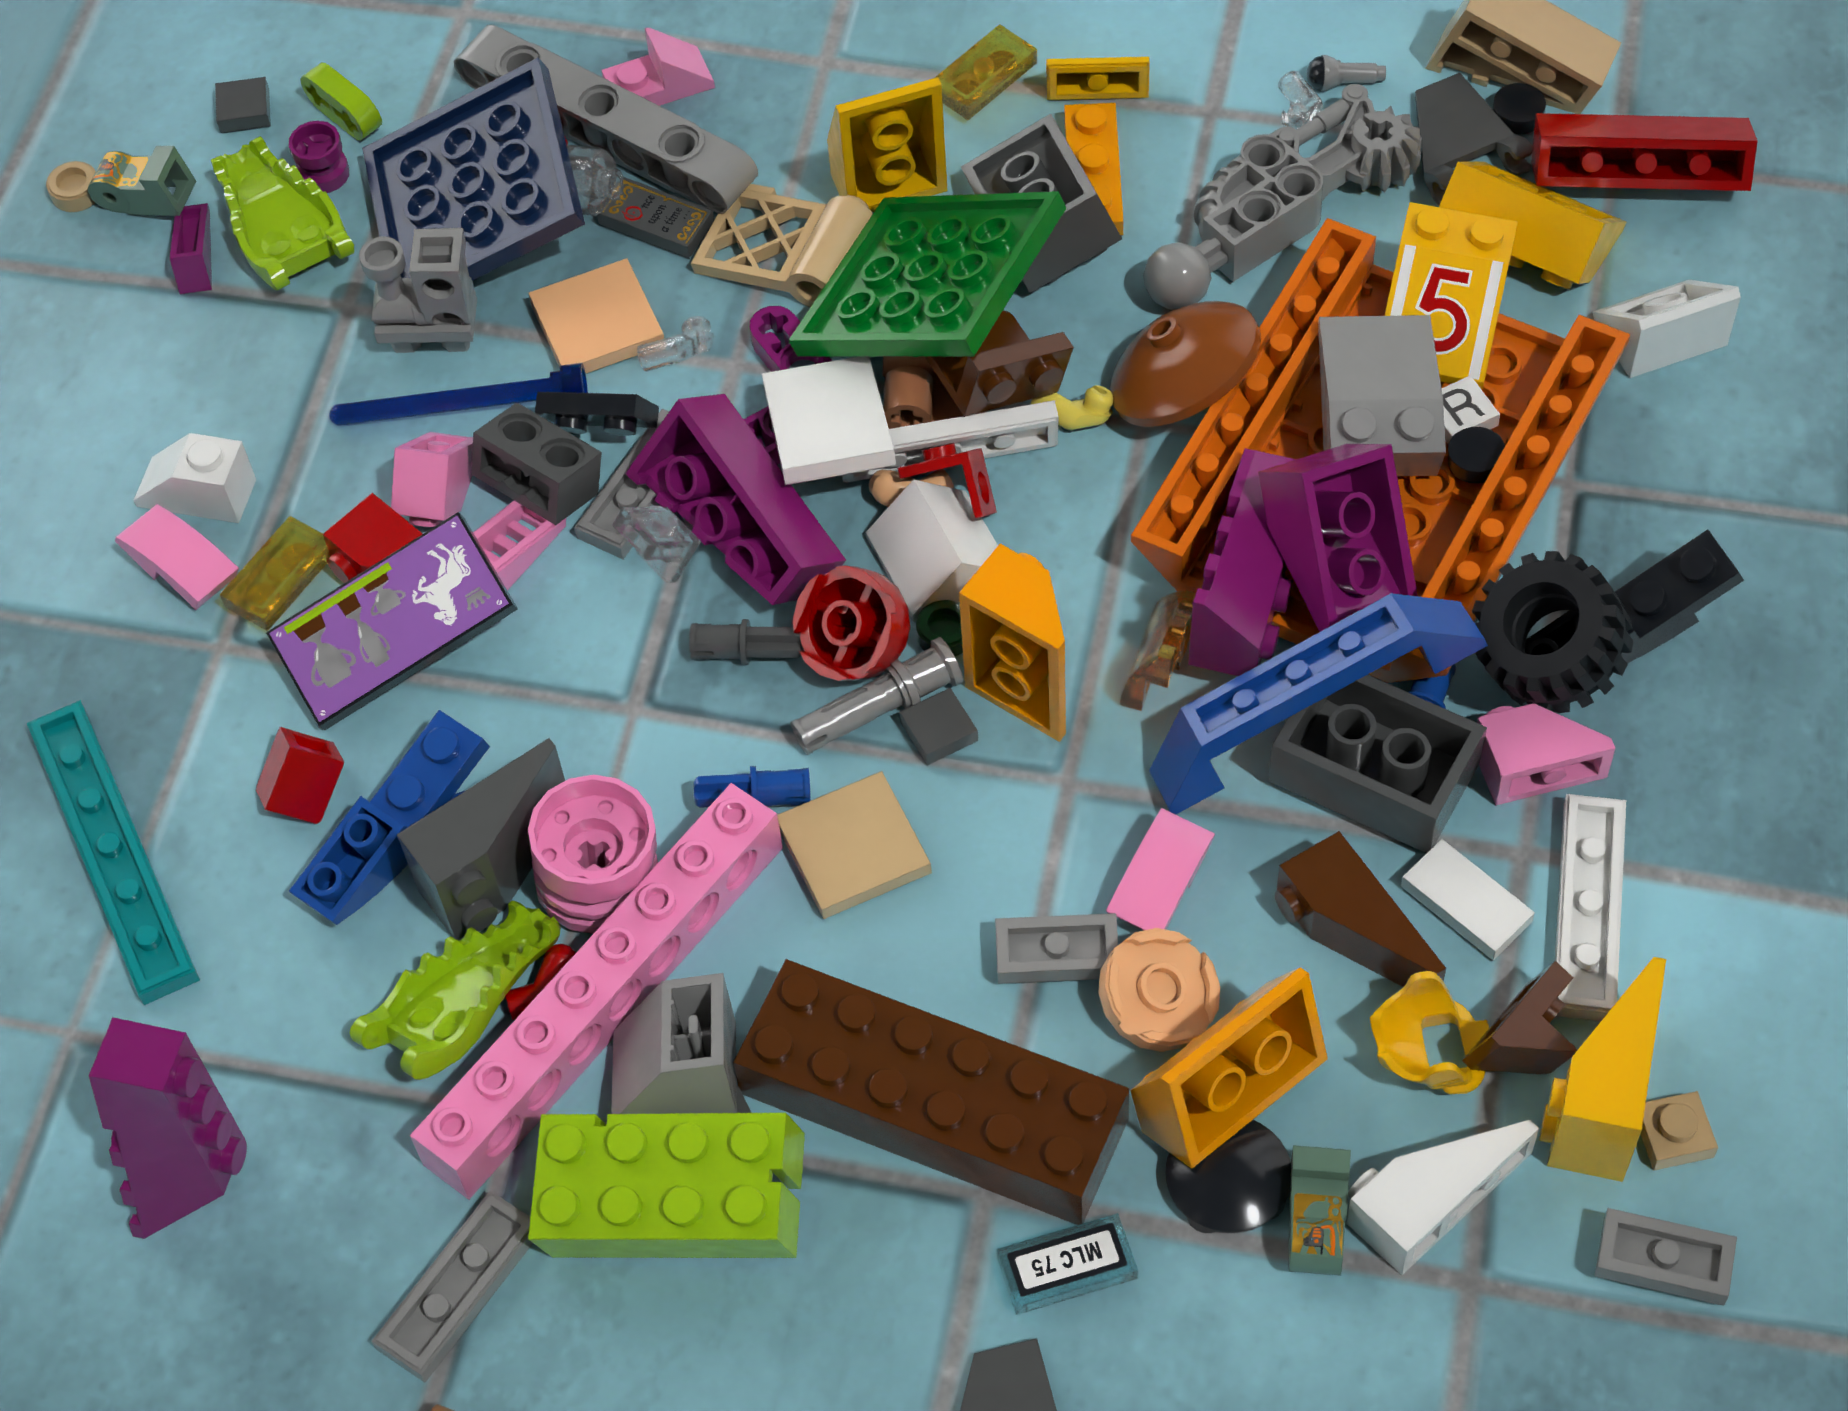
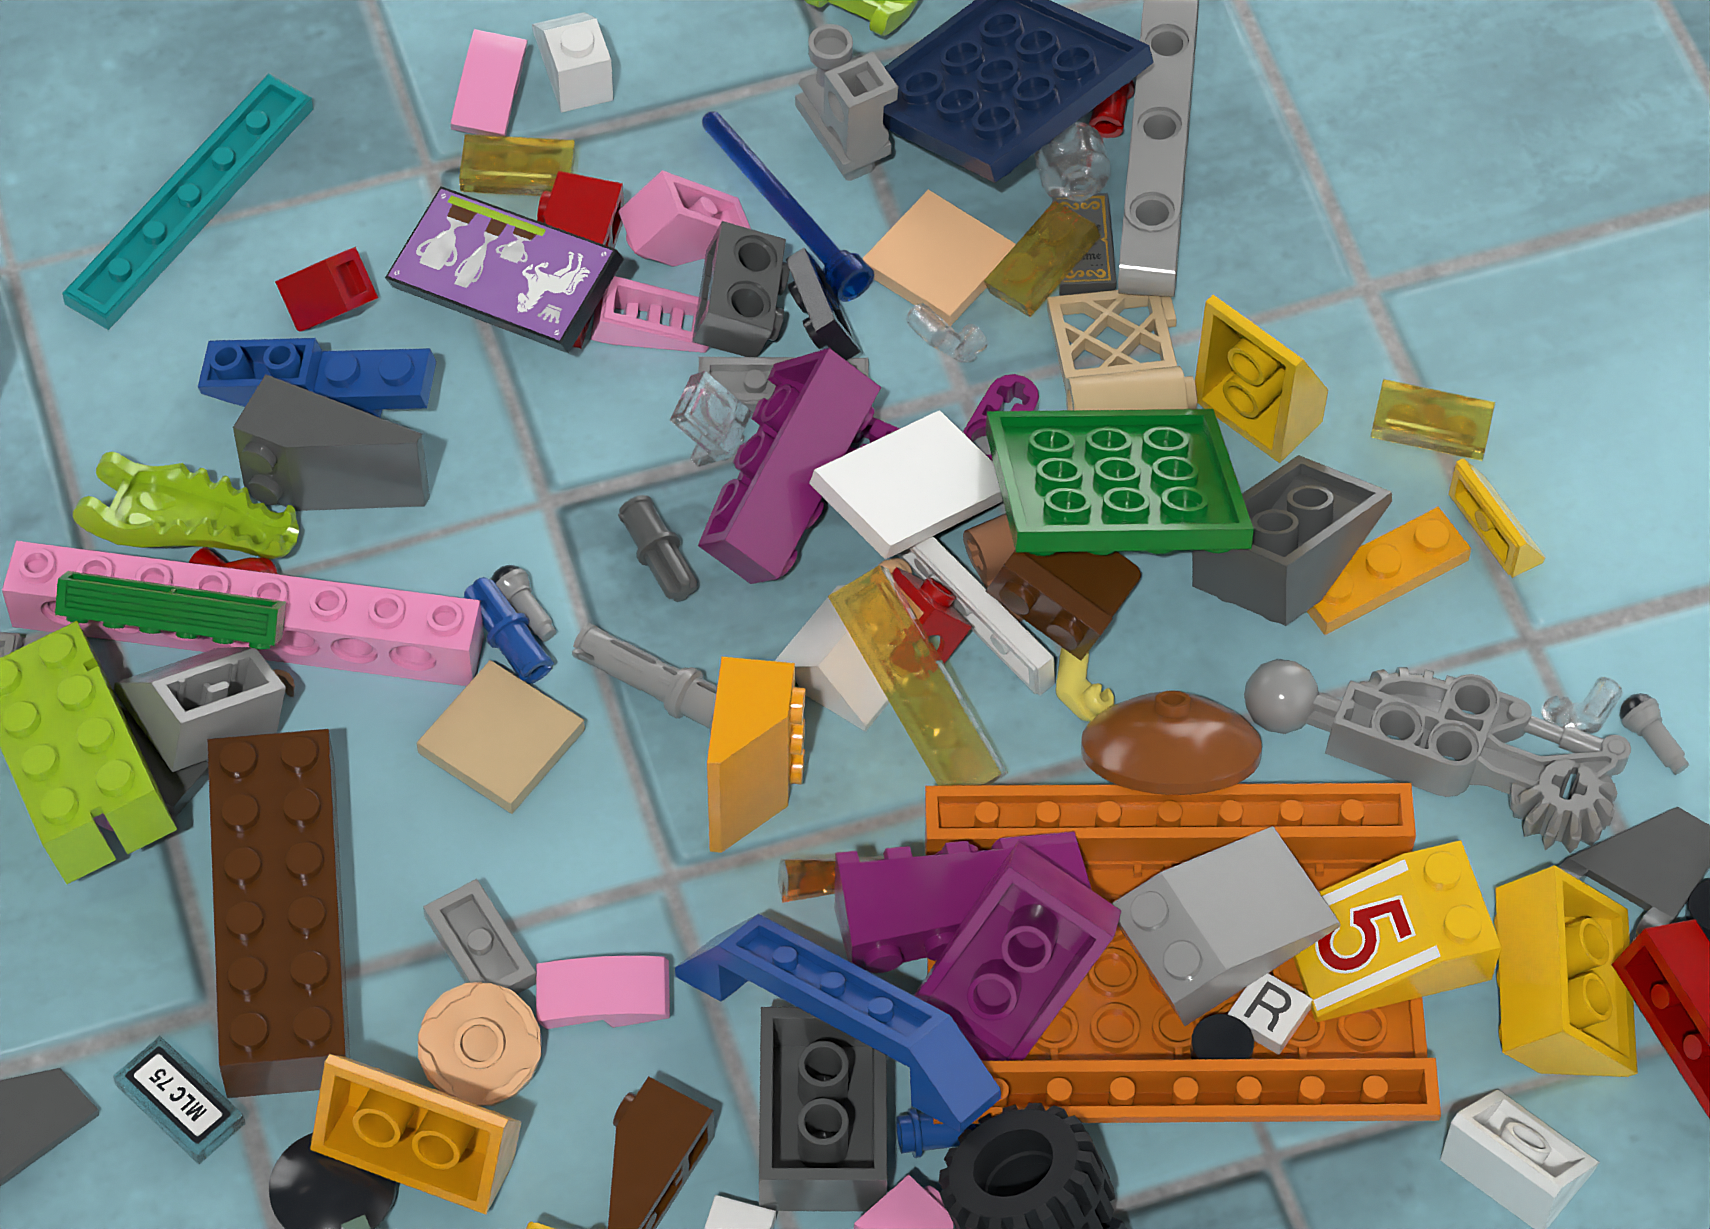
camera: 55 degrees right, 0 degrees up
(582, 1029) = (170, 608): none -> green piece
(590, 848) = (356, 509): bright pink wheel -> none
(656, 245) = (1042, 258): none -> clear yellow plate
(666, 74) = (1251, 162): bright pink slope -> none
(709, 763) = (516, 588): none -> light grey piece
(851, 623) = (708, 615): red cylinder -> none
(938, 726) = (662, 744): dark grey tile -> none
(1029, 495) = (916, 681): none -> clear yellow brick

